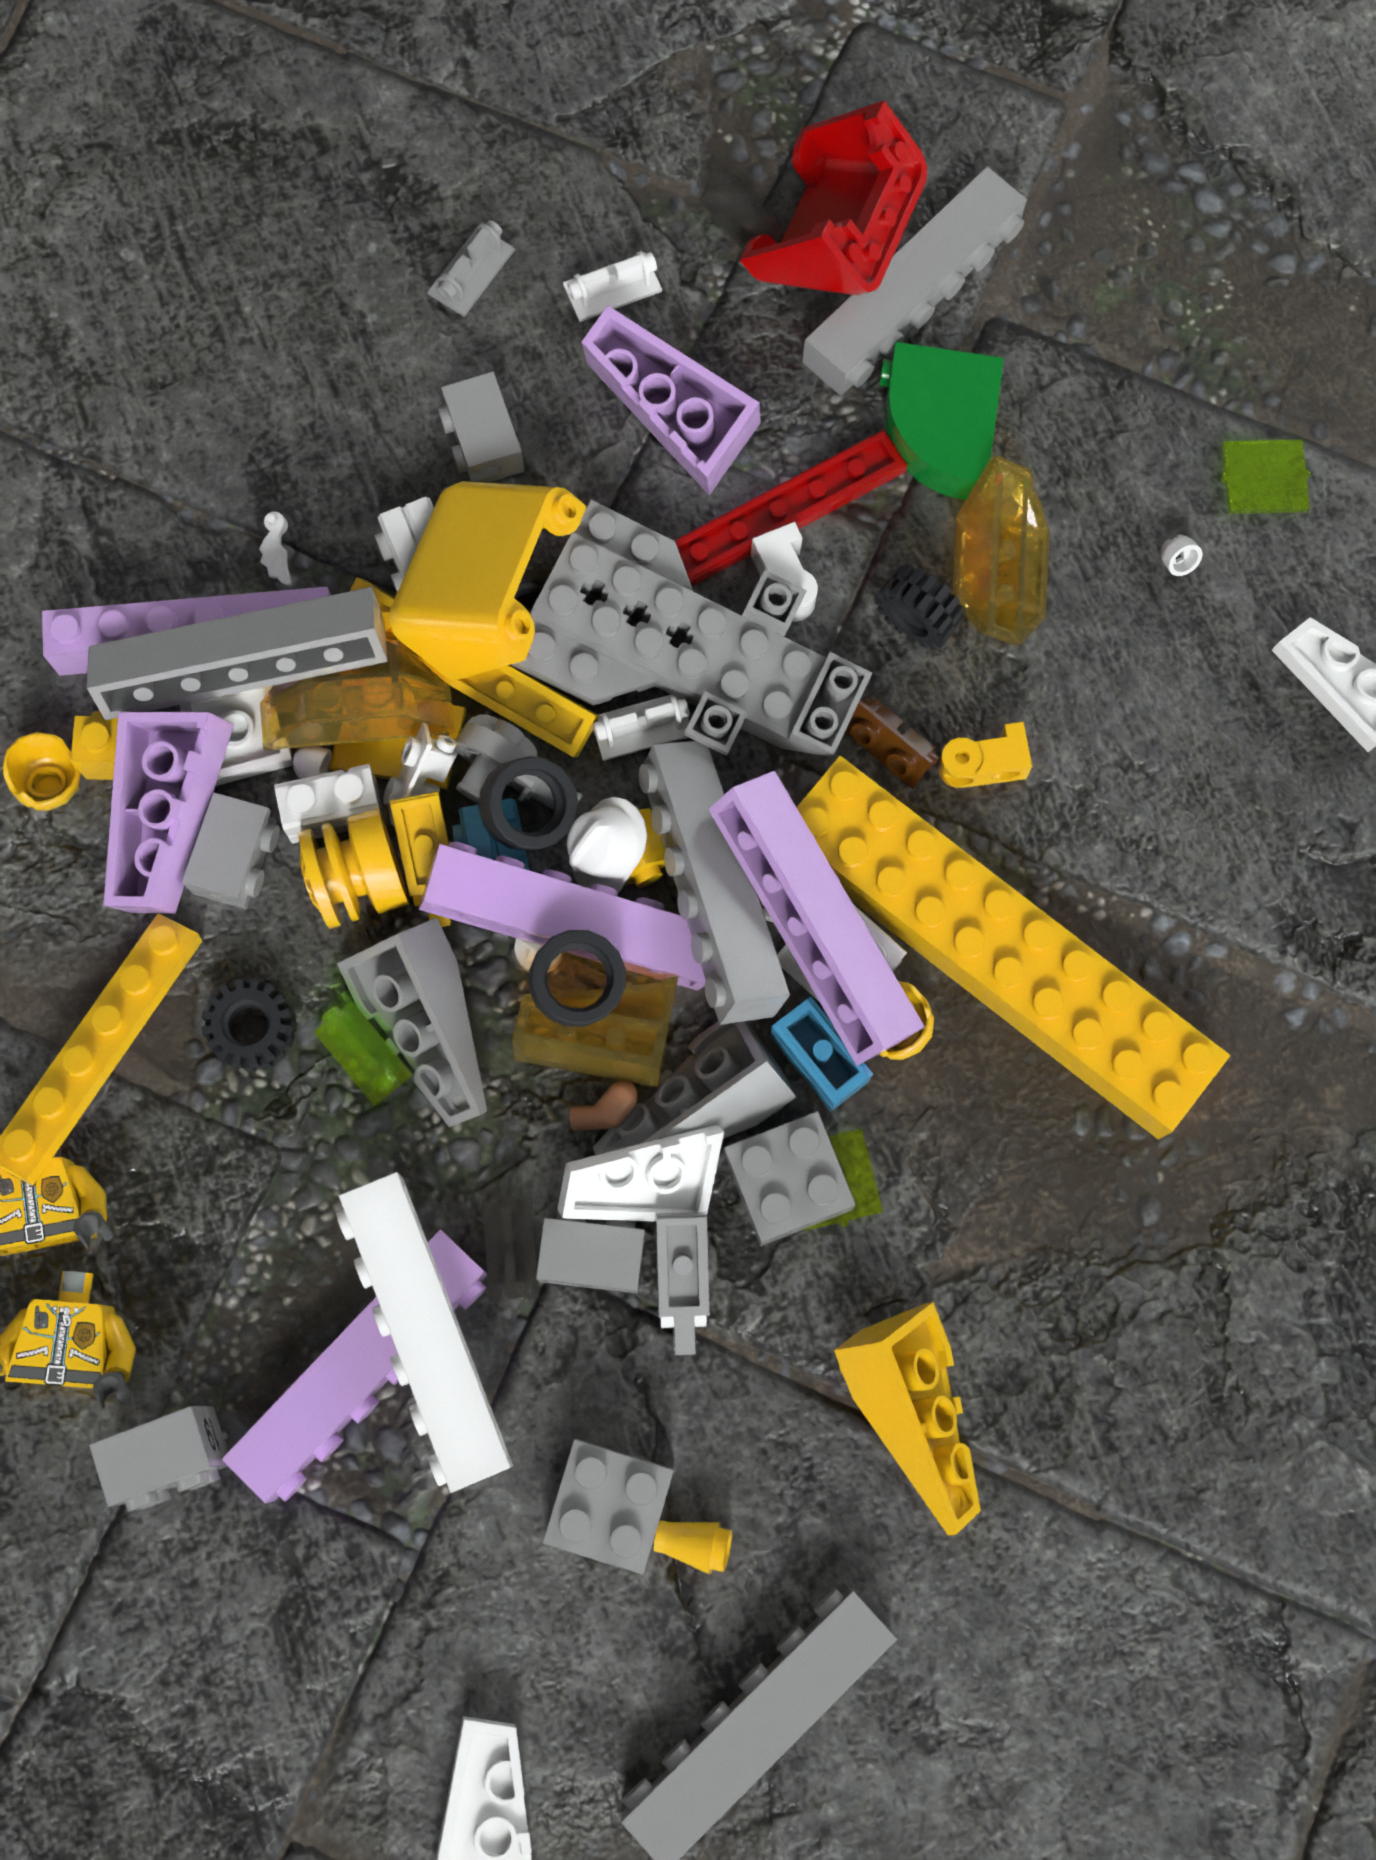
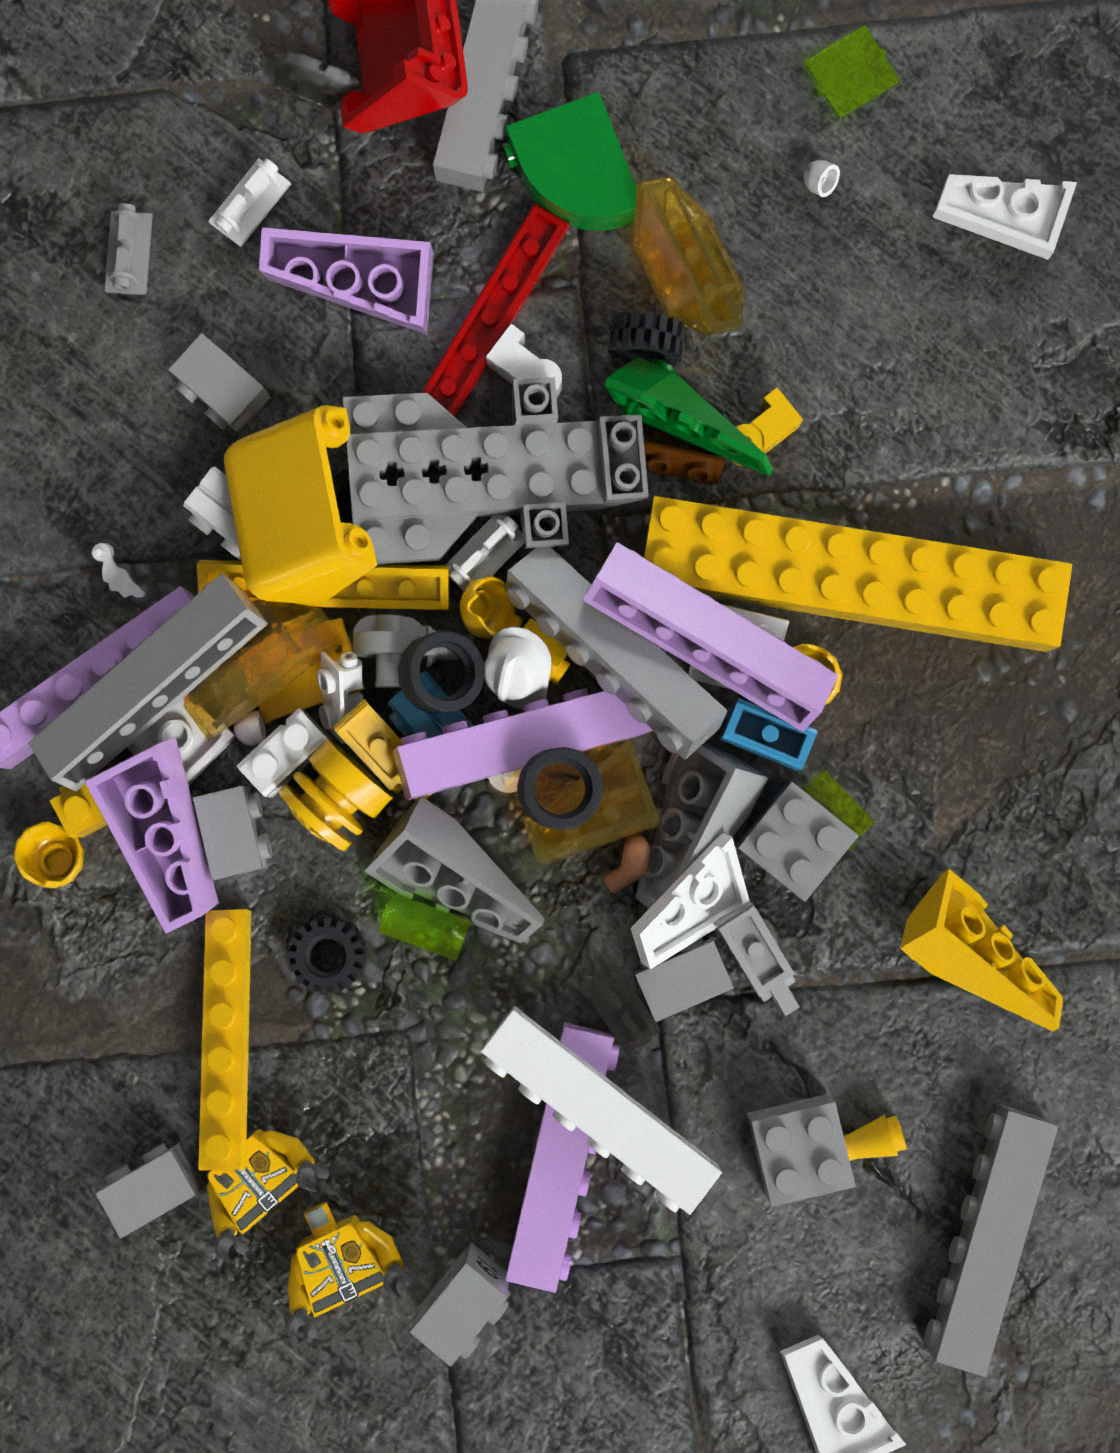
camera: 25 degrees left, 10 degrees up
(612, 772) = (487, 608): none -> yellow hair
(912, 691) = (680, 411): none -> green wedge

